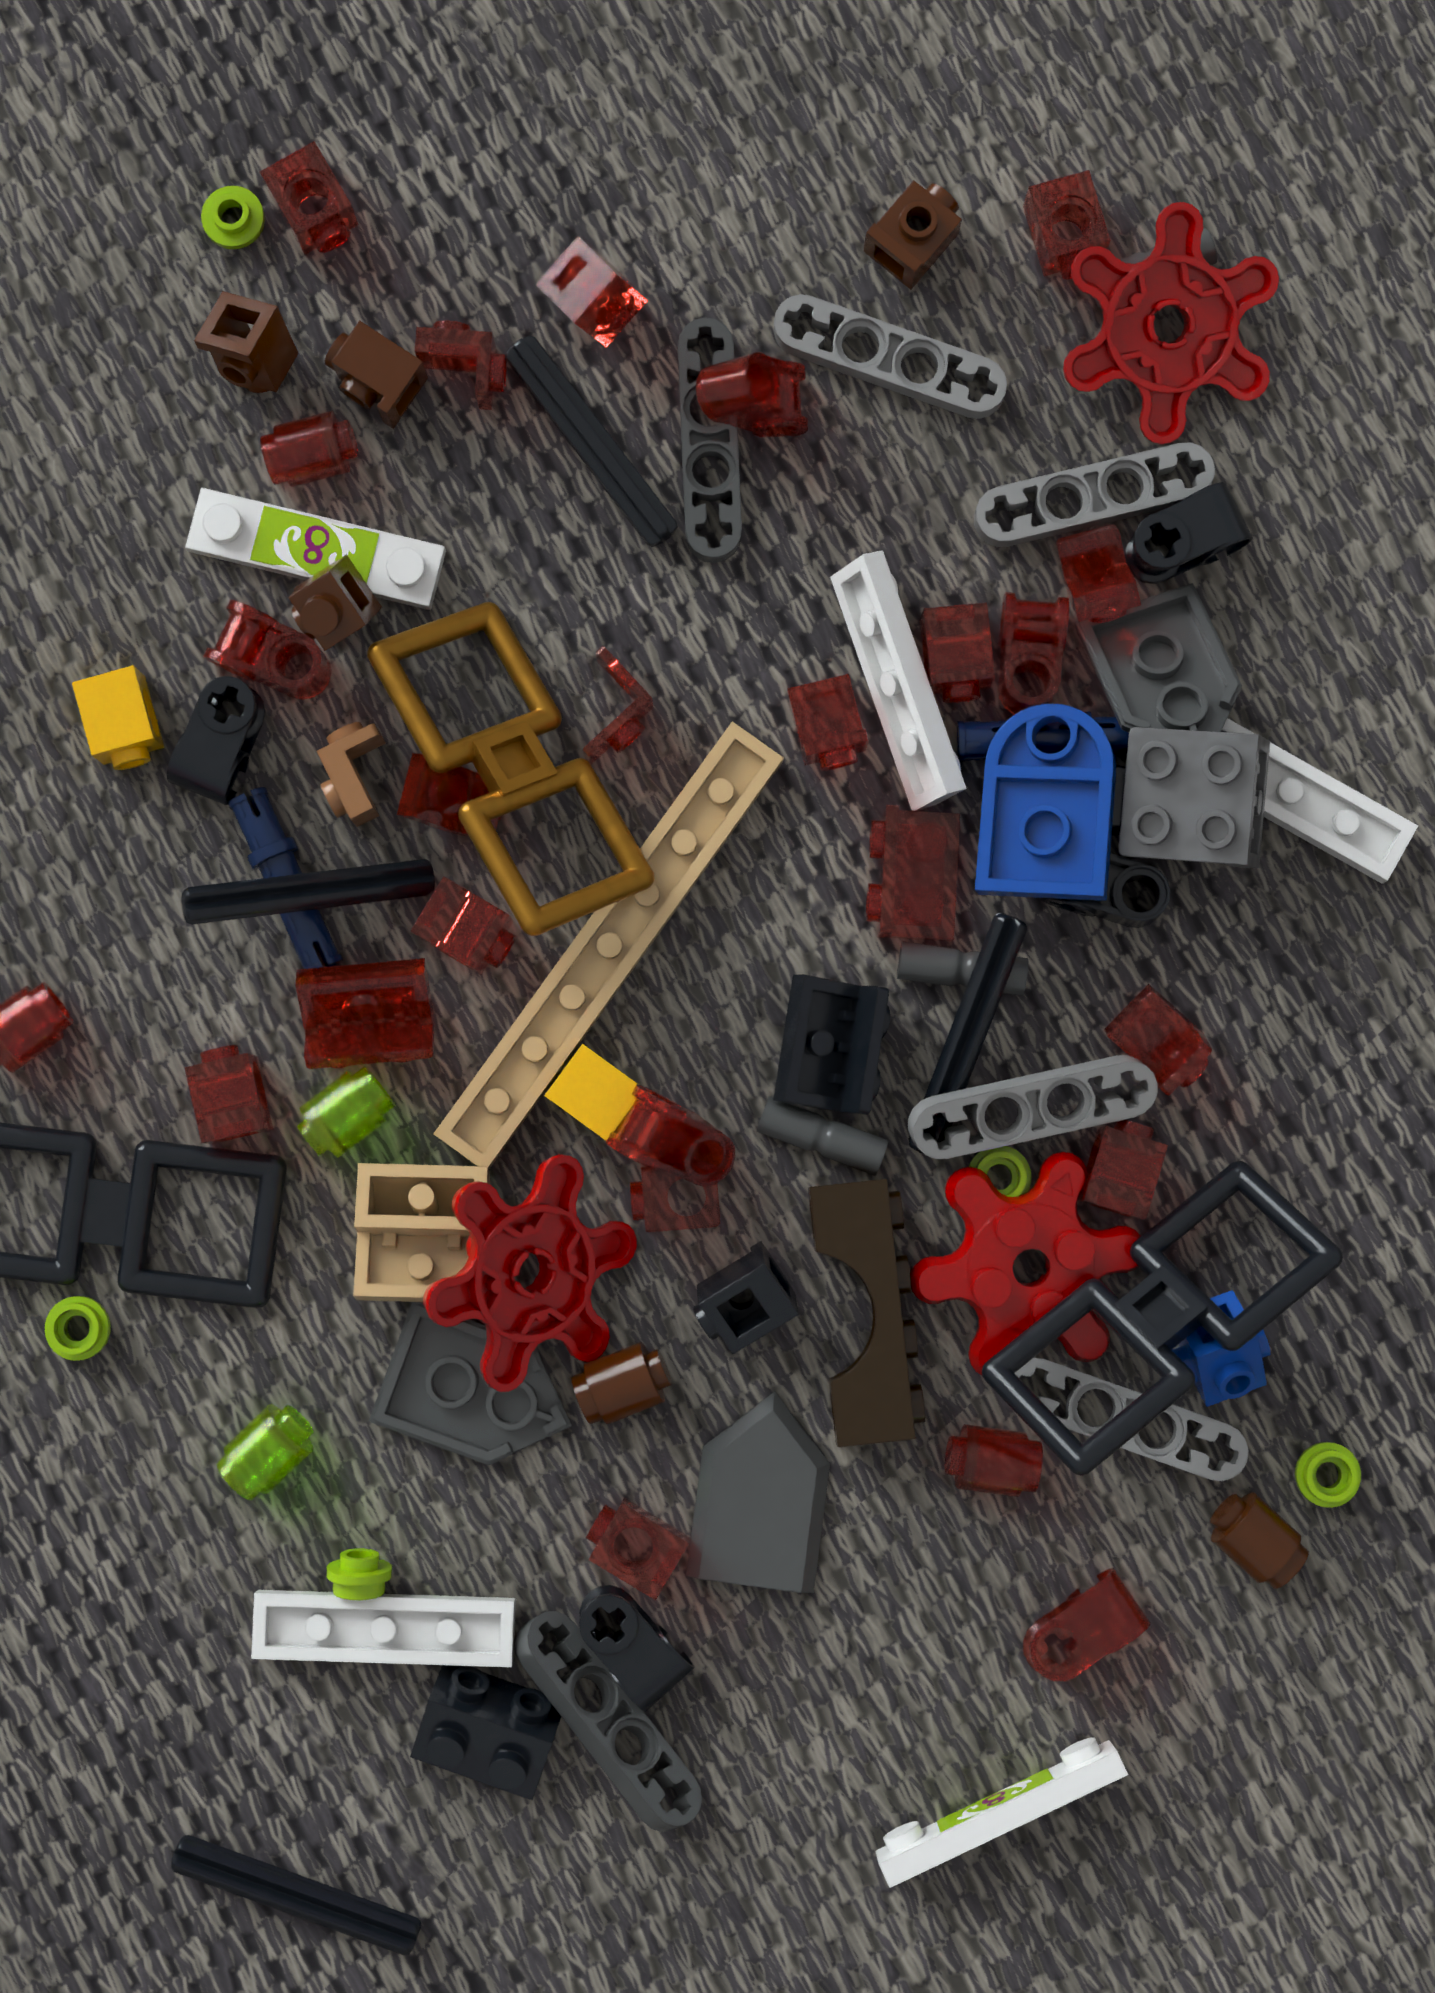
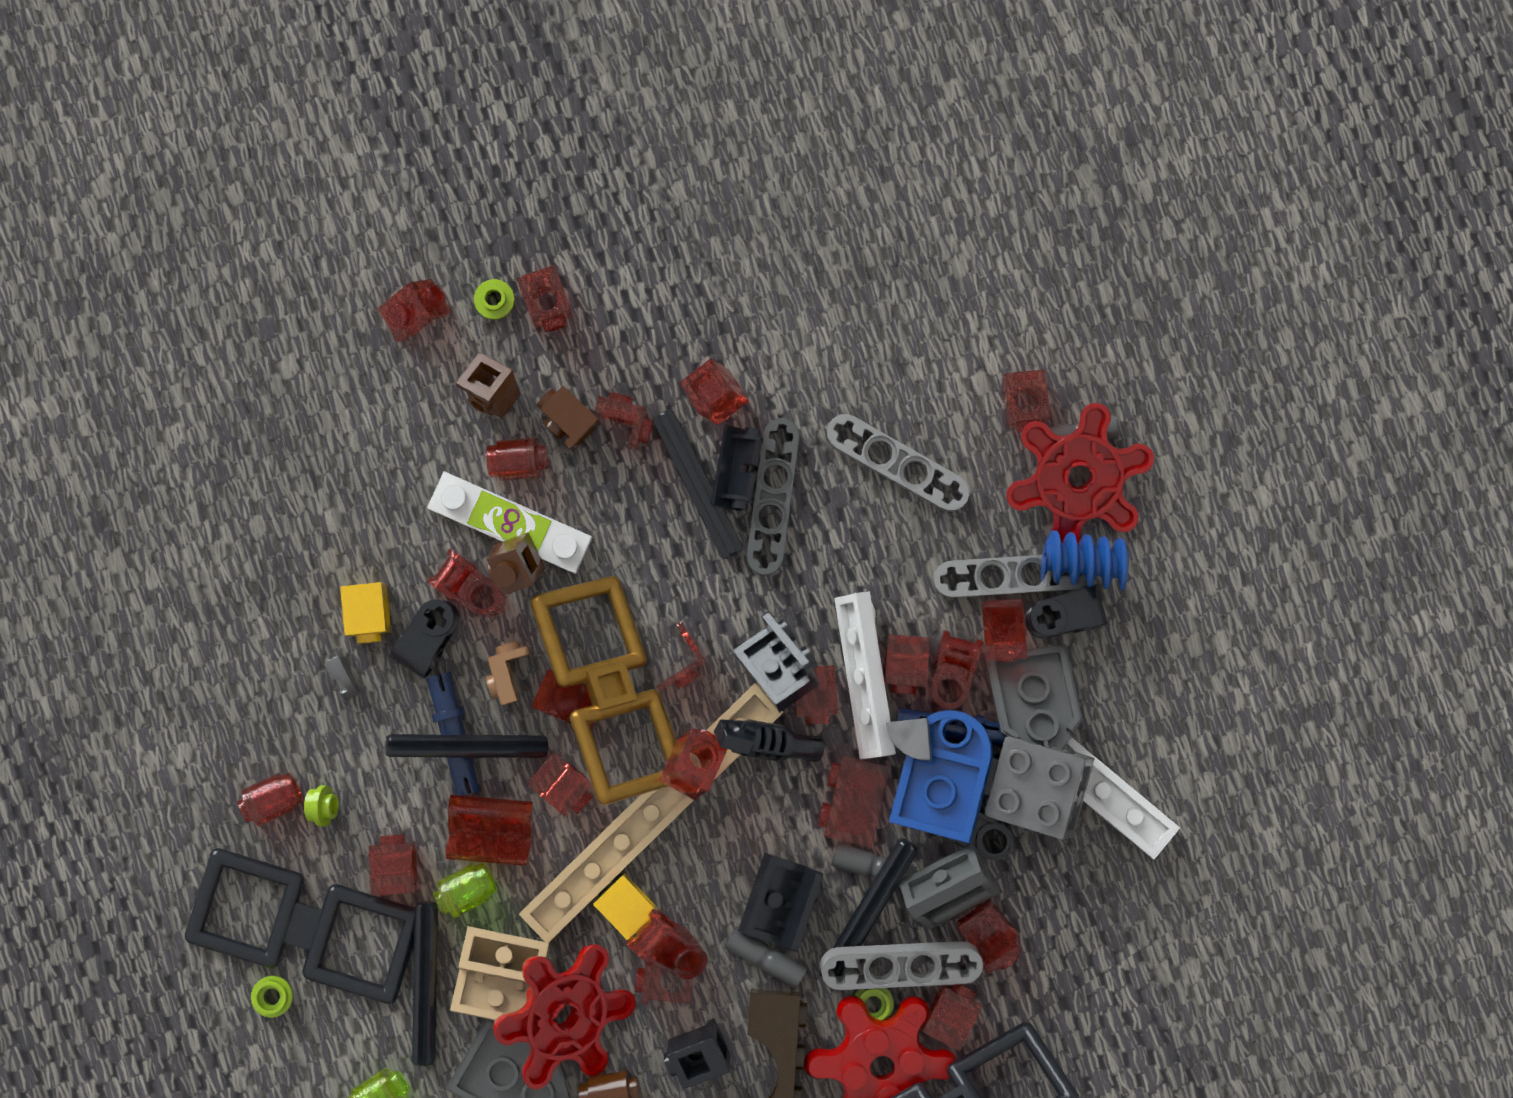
camera: 10 degrees right, 0 degrees up
(94, 814) = (339, 670): none -> flat silver tile
(102, 1024) = (321, 805): none -> lime plate
(111, 251) = (413, 308): none -> clear red bracket
(308, 1265) = (424, 983): none -> black axle
(644, 421) = (733, 482): none -> black hinge
(649, 870) = (683, 774): none -> clear red brick
(754, 394) = (805, 476): clear red piece -> none
(763, 682) = (778, 664): none -> bracket
(767, 802) = (767, 741): none -> black hinge
(910, 252) = (920, 399): reddish brown brick -> none
(987, 755) = (912, 737): none -> flat silver tile
(1078, 964) = (949, 887): none -> dark grey tile
(1203, 442) = (1085, 559): none -> blue piece

